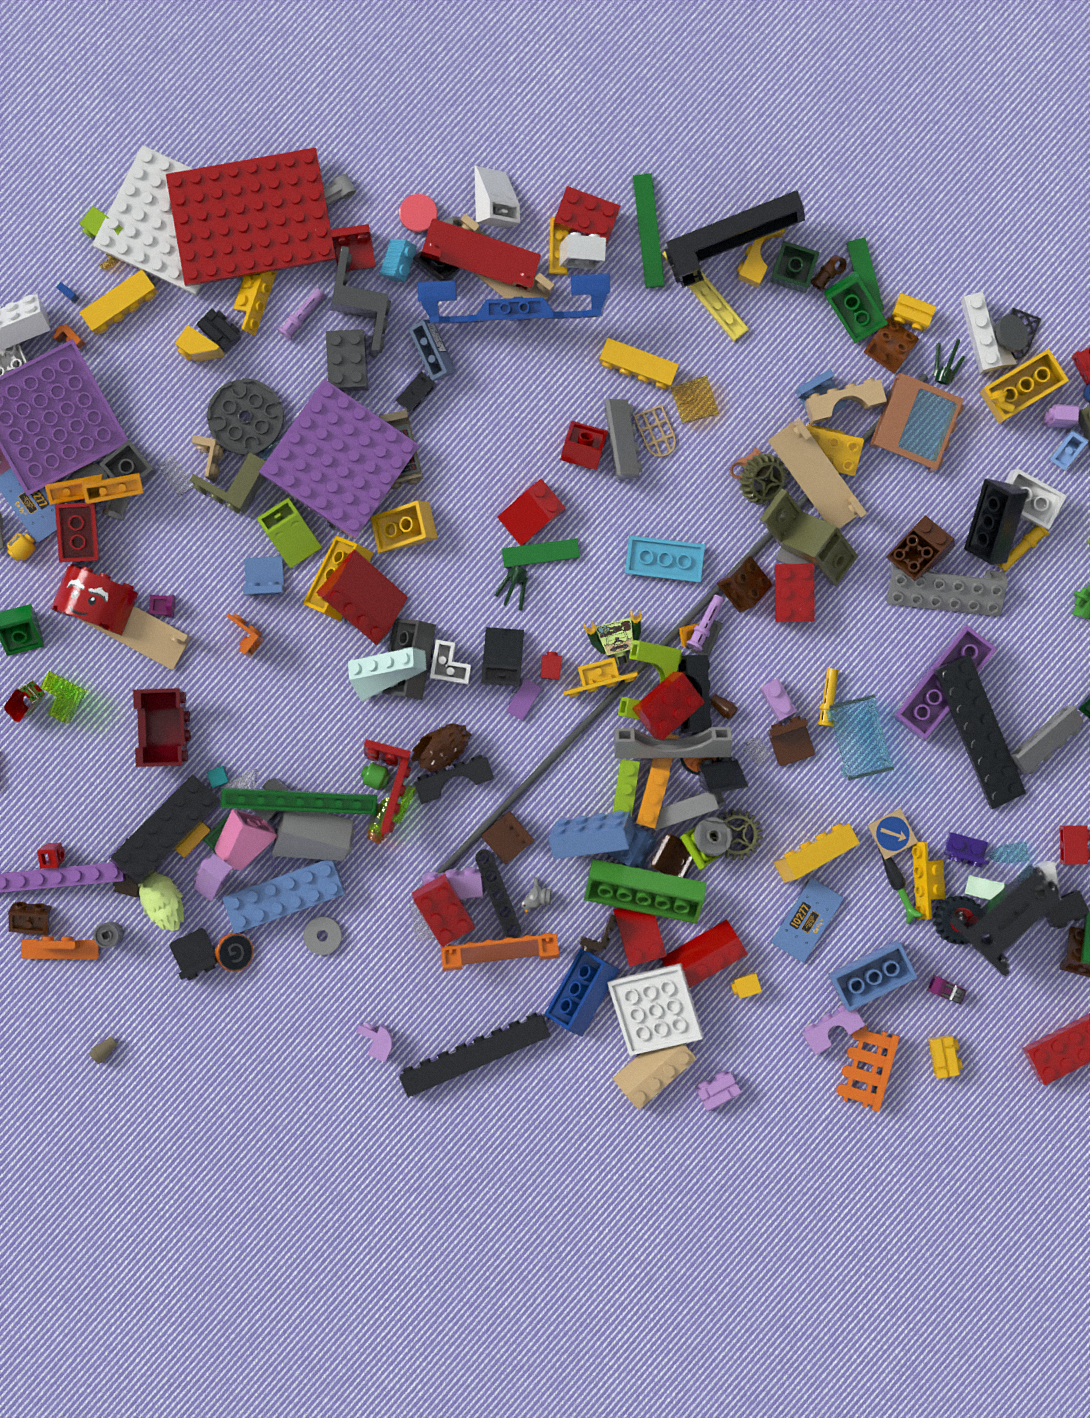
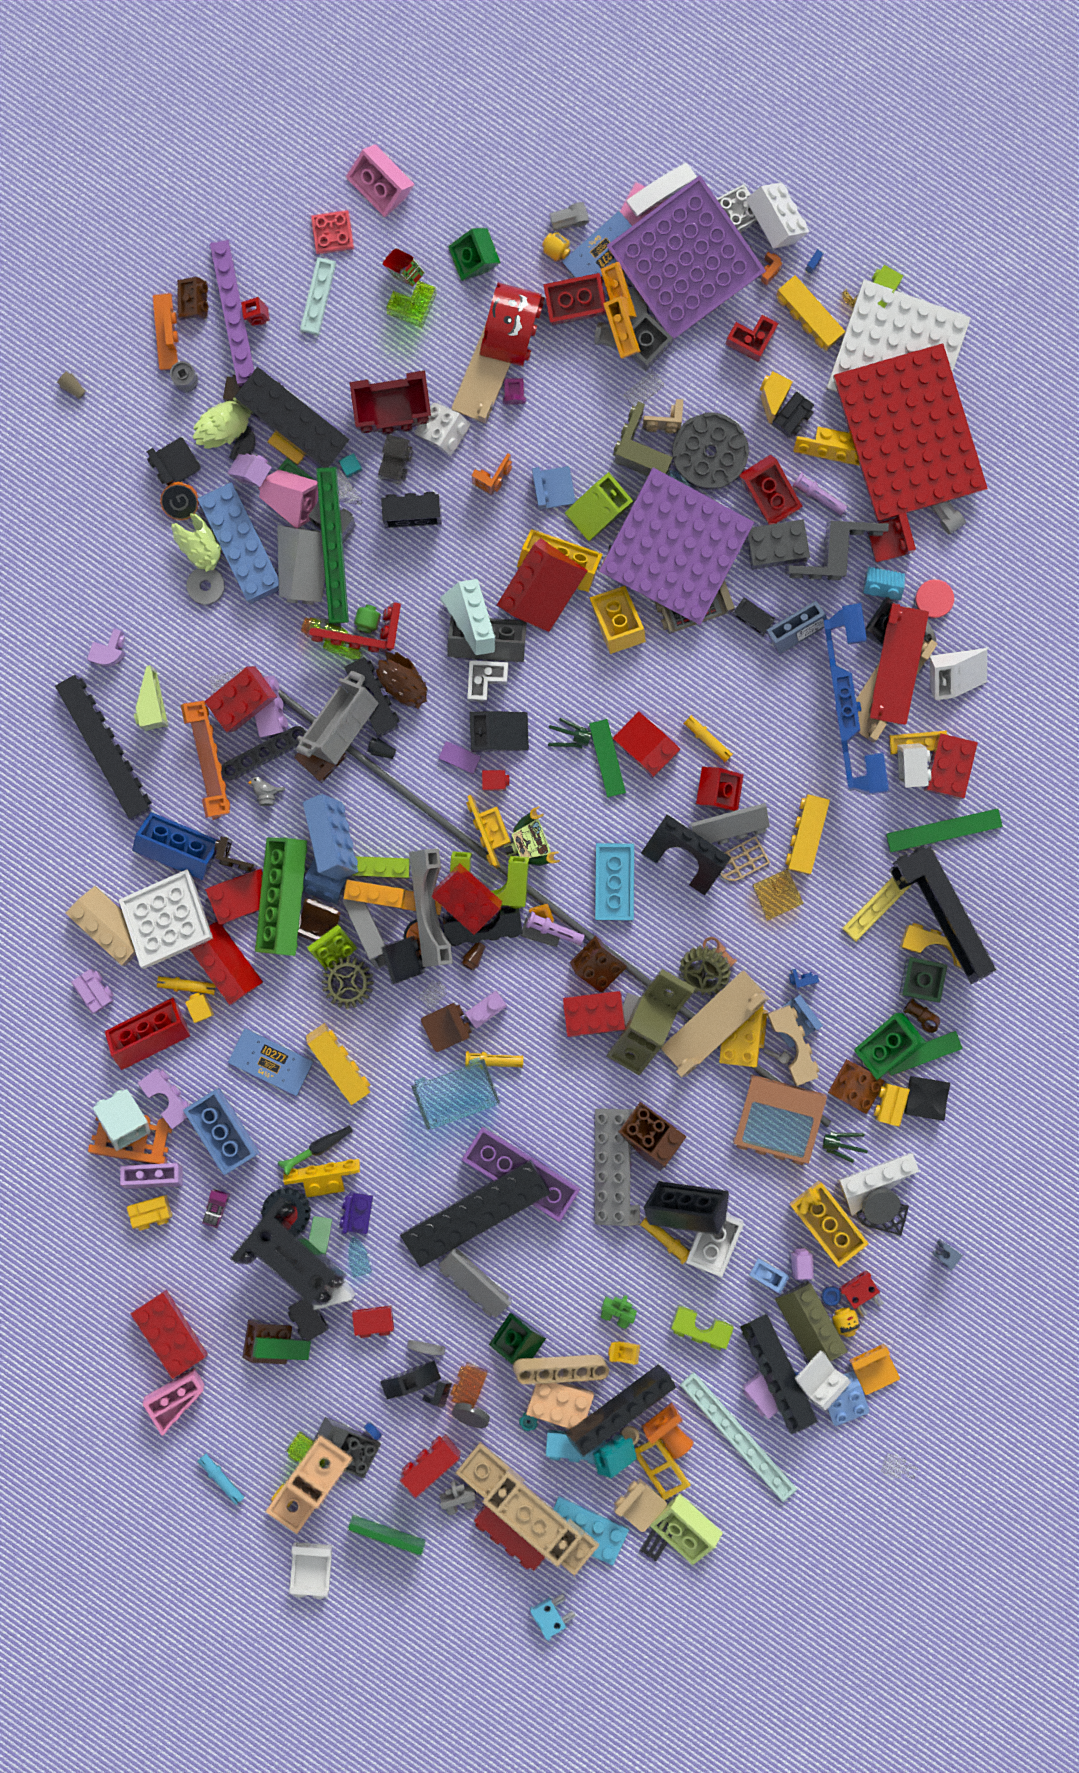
camera: 85 degrees right, 0 degrees up
(42, 791) = (318, 296): none -> light aqua tile
(141, 363) = (752, 342): none -> red brick
(184, 881) = (244, 444): none -> black tile
(193, 678) = (444, 428): none -> white bracket
(215, 730) = (396, 454): none -> clear smoke brick
(271, 719) = (411, 510): none -> black brick
(283, 935) = (198, 545): none -> yellowish green head
(291, 361) = (770, 490): none -> red slope
(440, 1002) = (150, 703): none -> yellowish green slope
(476, 814) = (338, 720): none -> light grey container
(506, 777) = (380, 748): none -> black cone
(526, 456) = (704, 735): none -> yellow pin
(626, 493) = (709, 858): none -> black arch
(703, 840) = (339, 946): light grey tile -> none
(722, 997) = (185, 985): none -> yellow pin
(766, 1040) = (147, 1033): none -> red slope
(781, 380) = (807, 979): none -> blue bracket
(850, 1074) = (121, 1119): none -> light aqua slope
(856, 412) = (784, 1058): none -> light grey hand
(892, 833) = (364, 1137): piece -> none
(909, 1050) = (151, 1176): none -> lavender brick
(910, 276) = (927, 1098): none -> black brick
(1068, 272) = (949, 1256): none -> sand blue hinge

